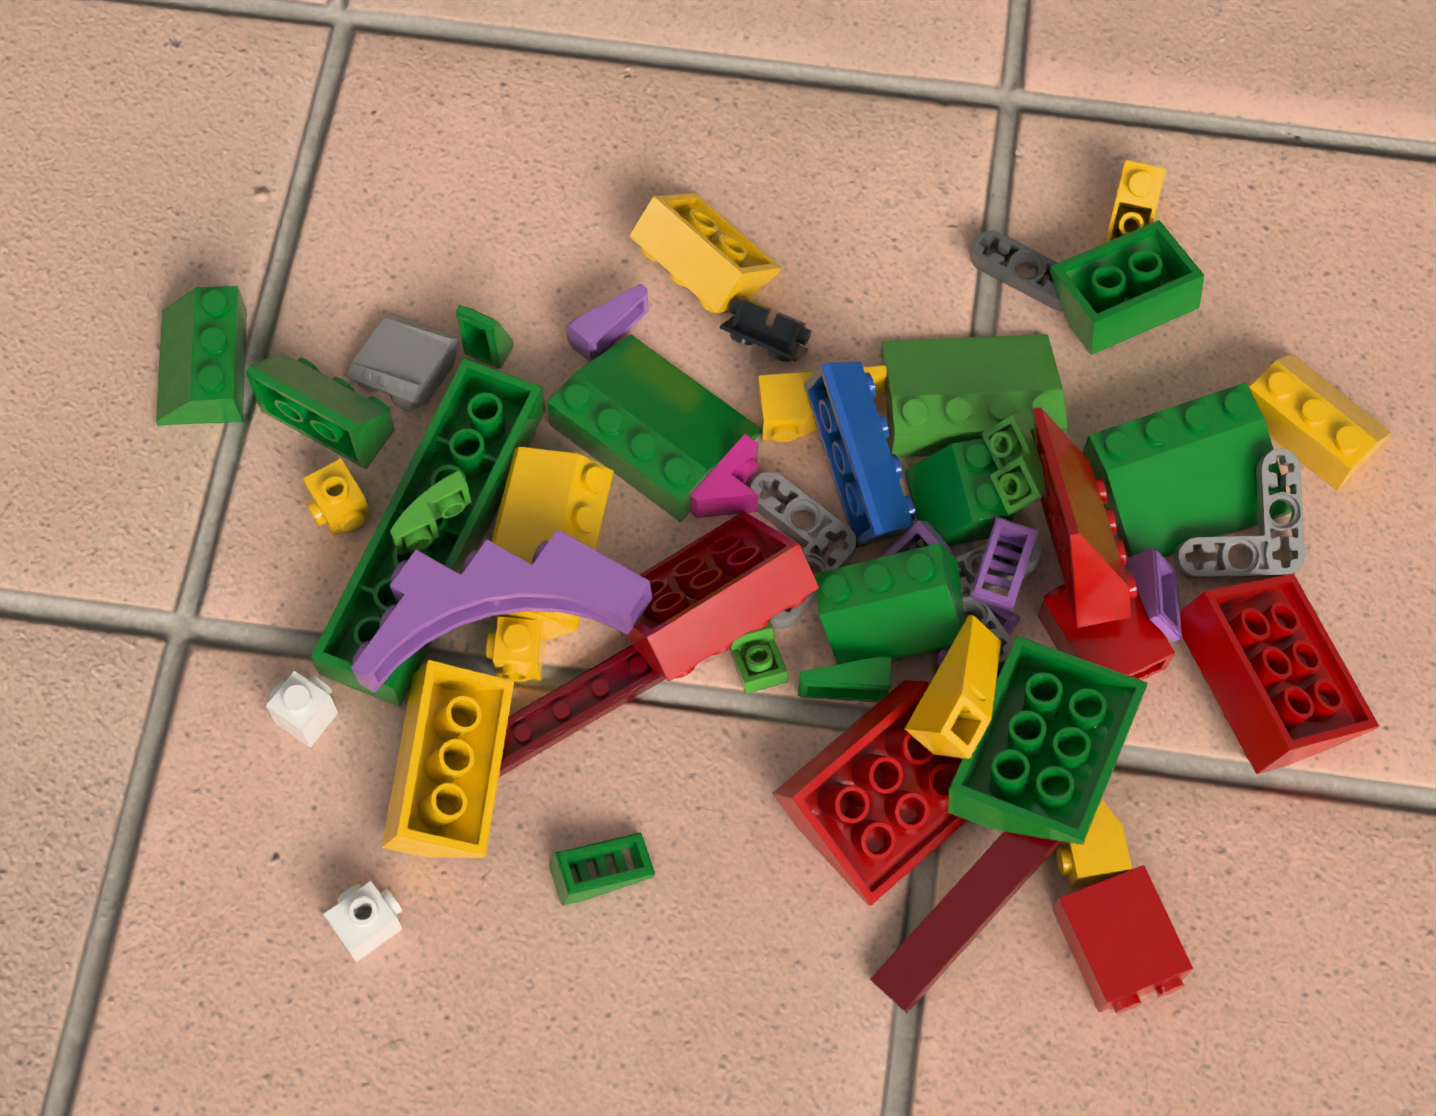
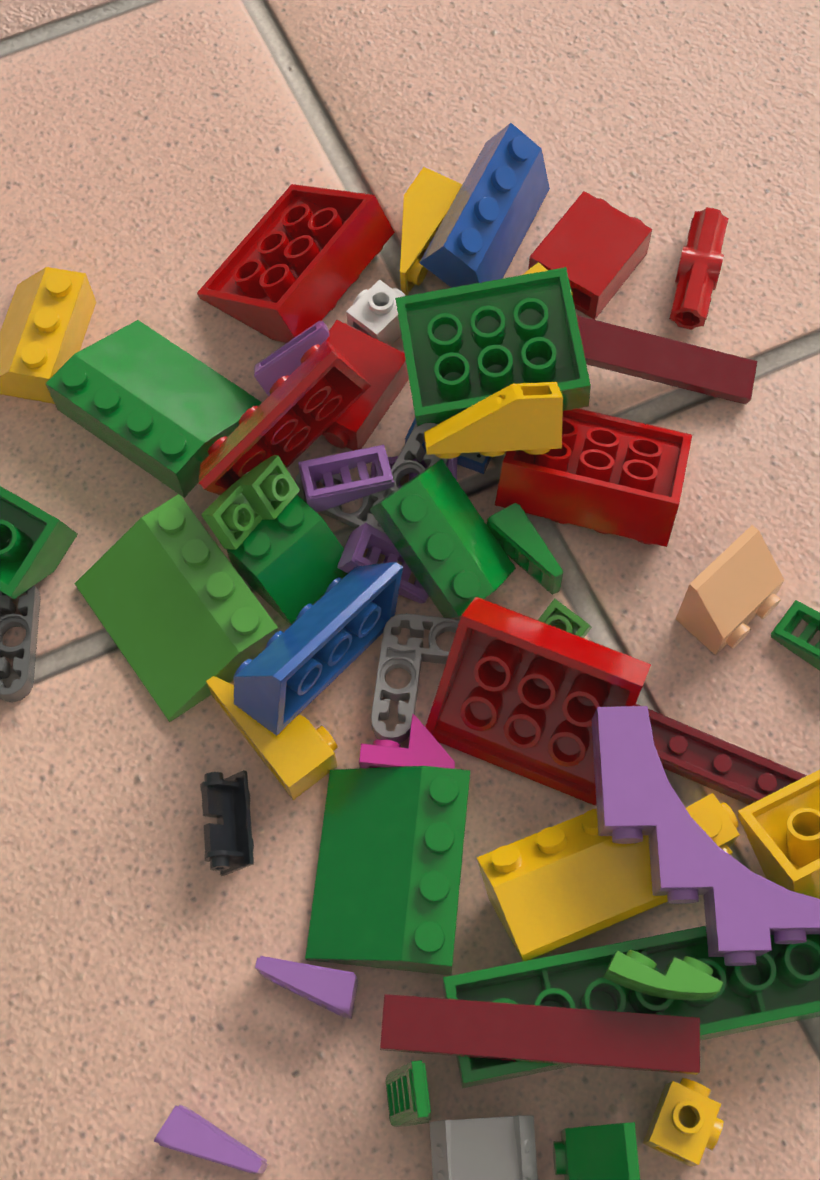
camera: 120 degrees left, 0 degrees up
(454, 420) = (541, 1034): none -> dark red tile
(549, 207) = (196, 1136): none -> medium lavender slope
(690, 807) = (732, 593): none -> light nougat slope
(702, 250) = (169, 941): yellow slope -> none
(1043, 1035) = (699, 268): none -> red piece
(1167, 705) = (376, 313): none -> white brick
(1214, 861) = (490, 212): none -> blue slope
(1255, 812) = (423, 212): none -> yellow slope
(1260, 546) = (187, 317): light grey beam -> none

